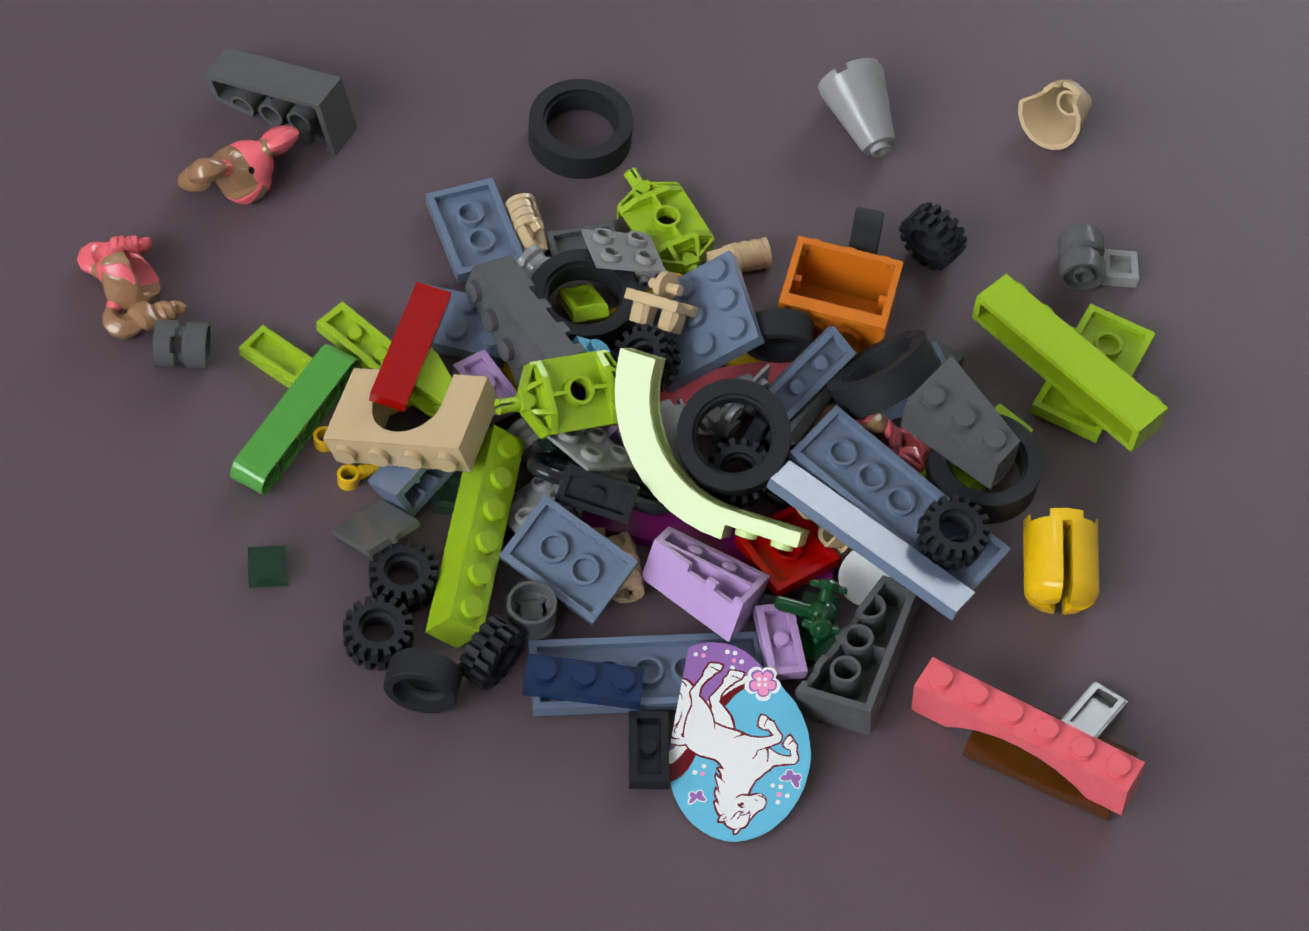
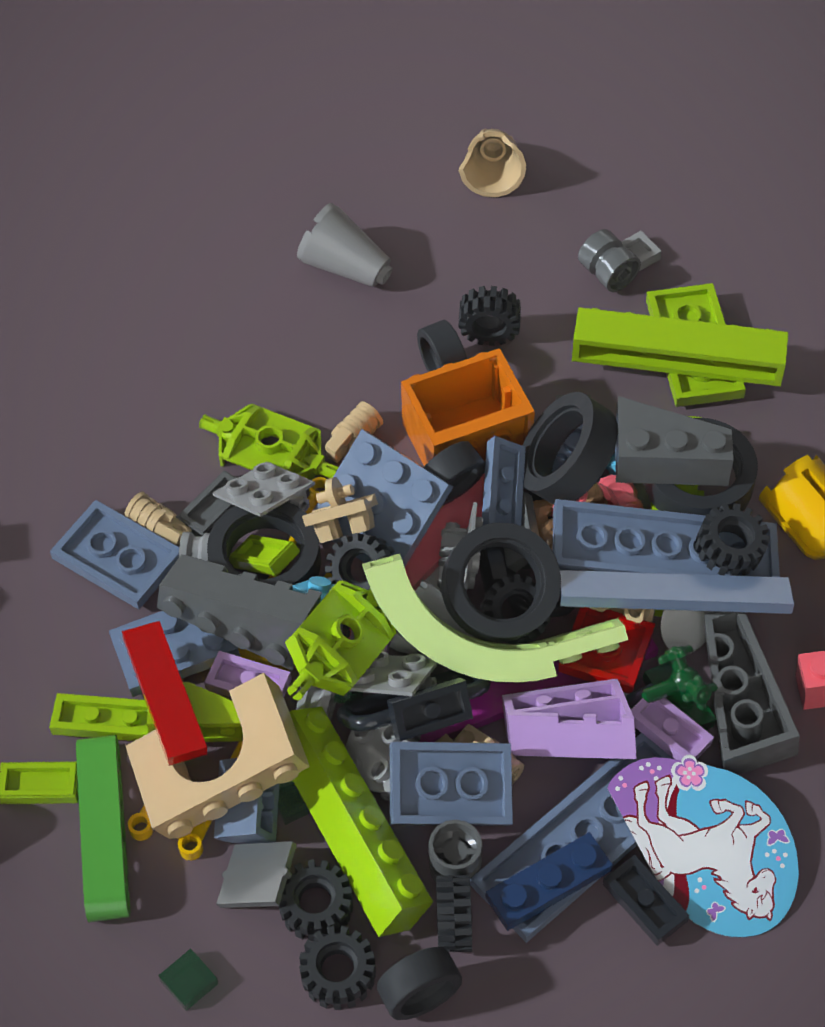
camera: 30 degrees left, 0 degrees up
(582, 95) = (126, 377): black tyre -> none

